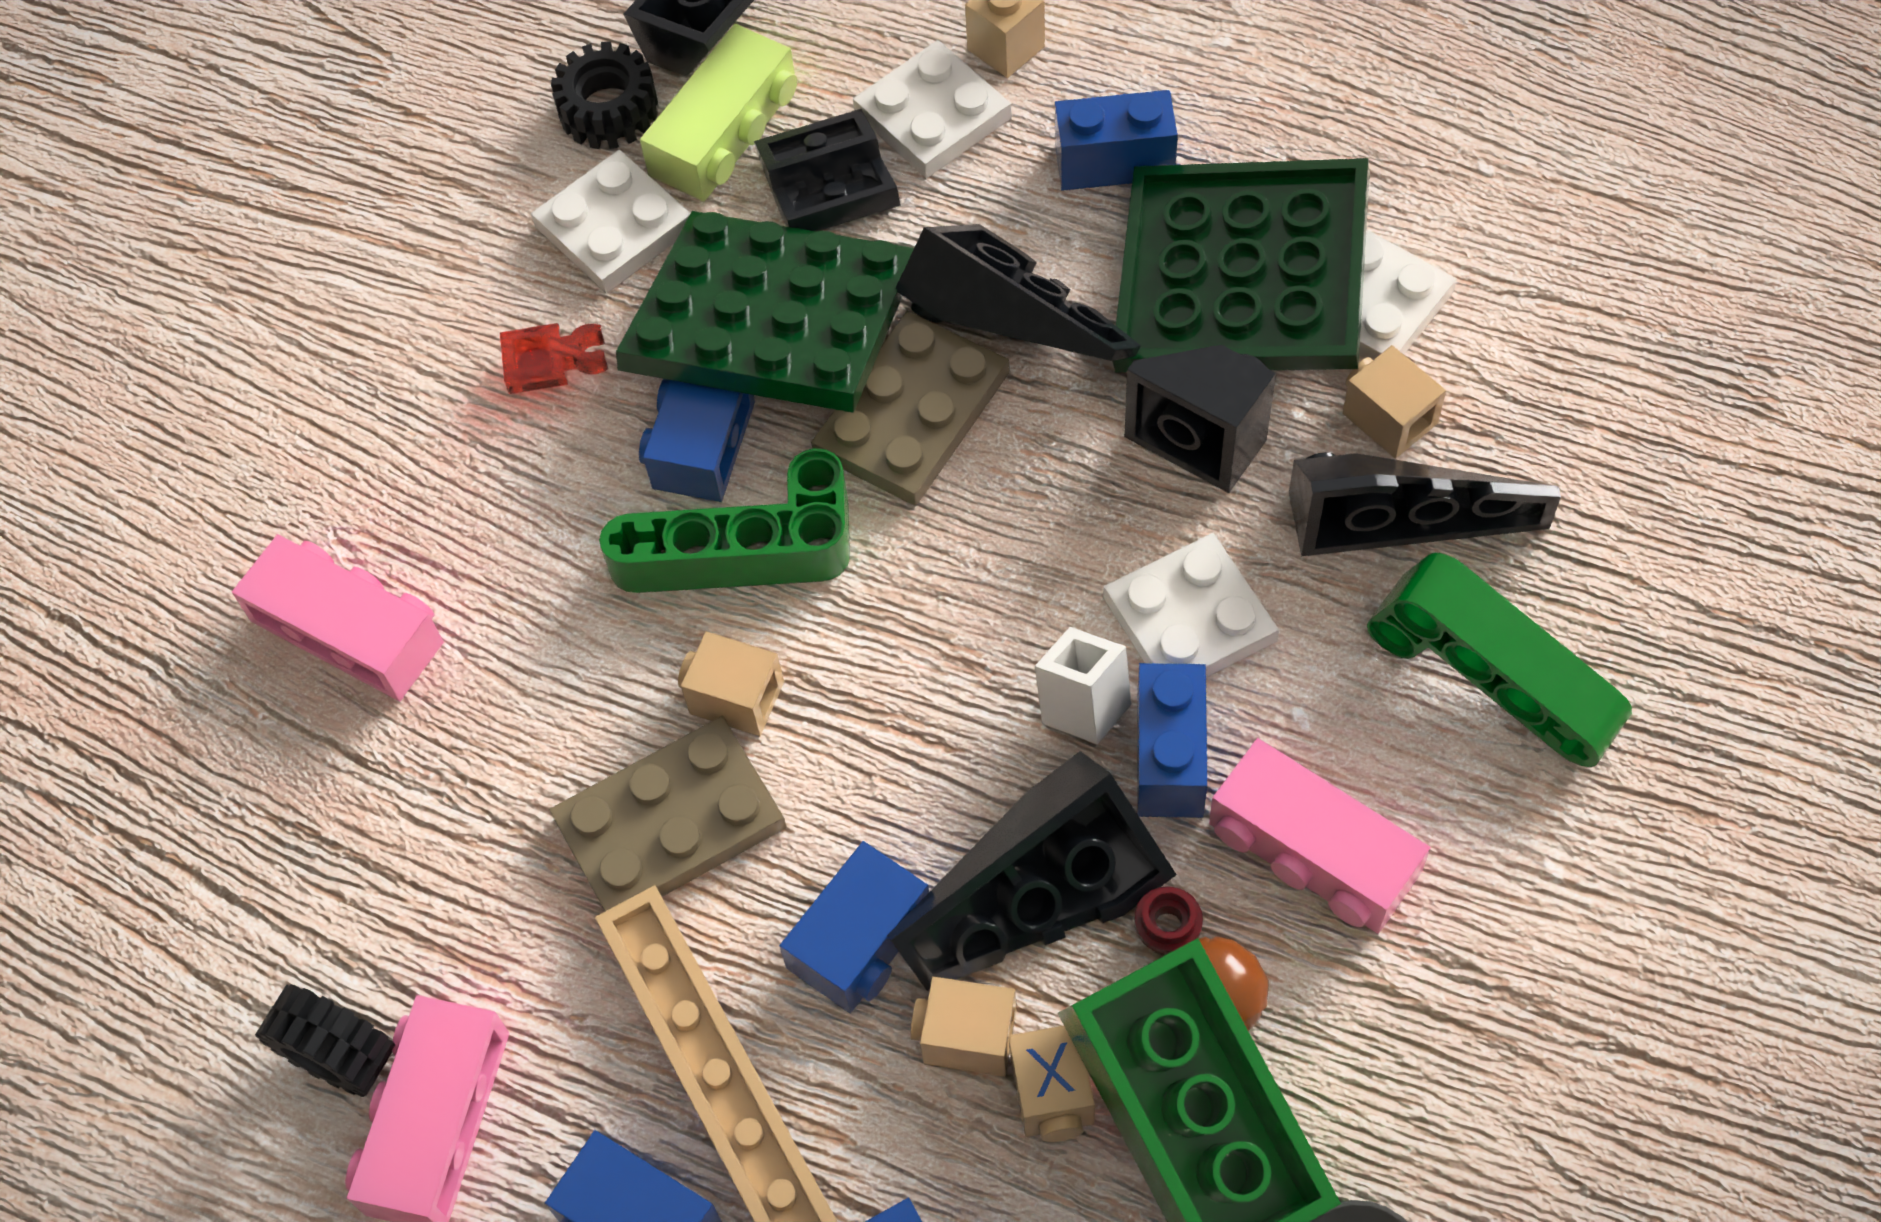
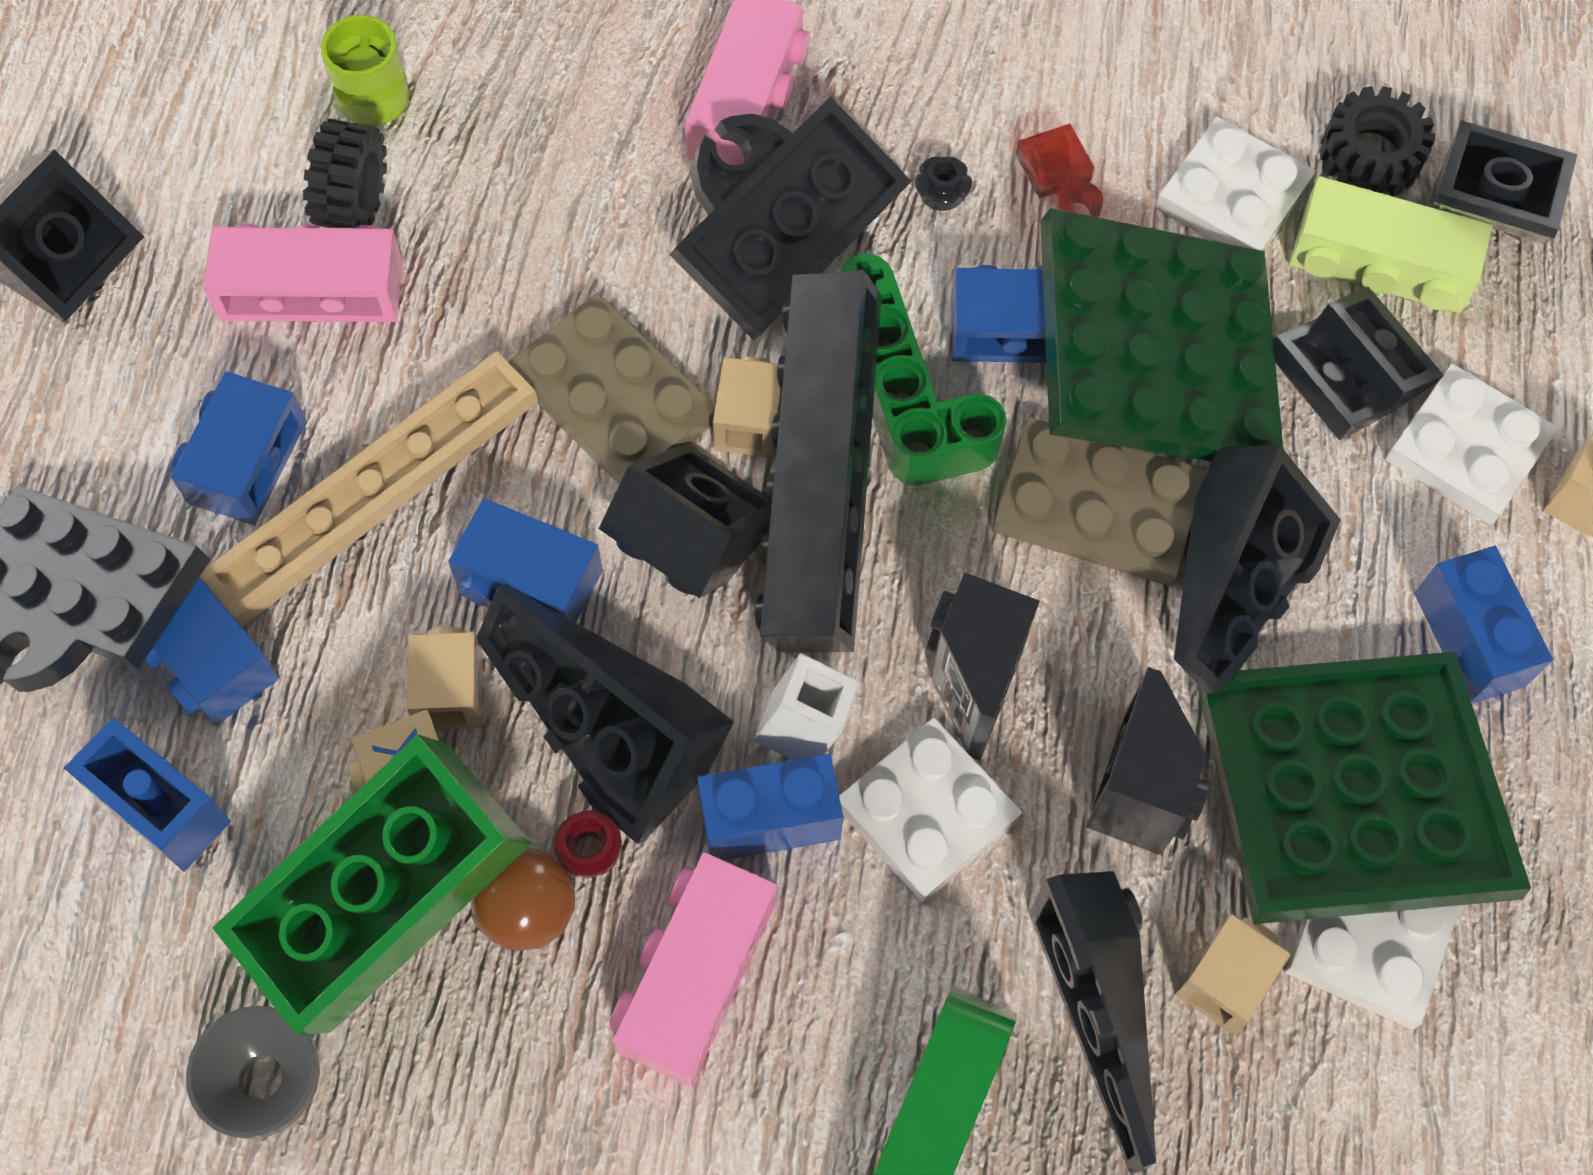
camera: 70 degrees right, 5 degrees up
(181, 1005) = (365, 70): none -> lime wheel
(516, 606) = (782, 209): none -> black plate
(526, 474) = (943, 194): none -> black plate
(823, 615) = (820, 464): none -> black brick
(845, 760) = (687, 518): none -> black slope
(1071, 522) = (976, 653): none -> black slope

